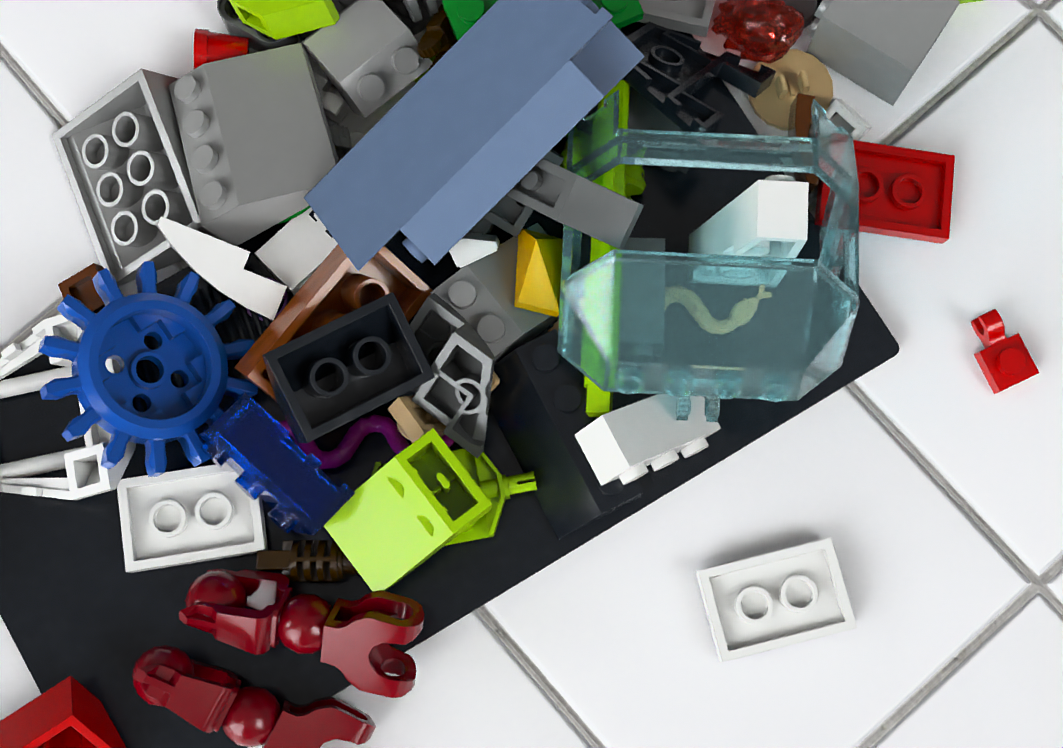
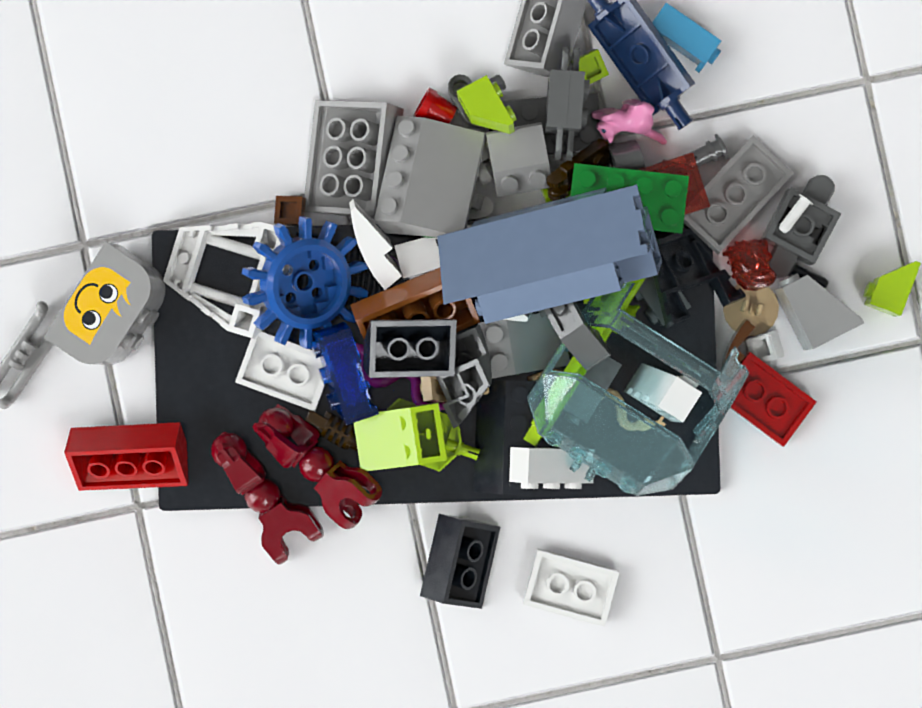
camera: 25 degrees right, 10 degrees up
(538, 272) = (541, 345): yellow slope -> none
(595, 652) = (460, 561): none -> black slope
(1004, 359) = (774, 529): red plate -> none

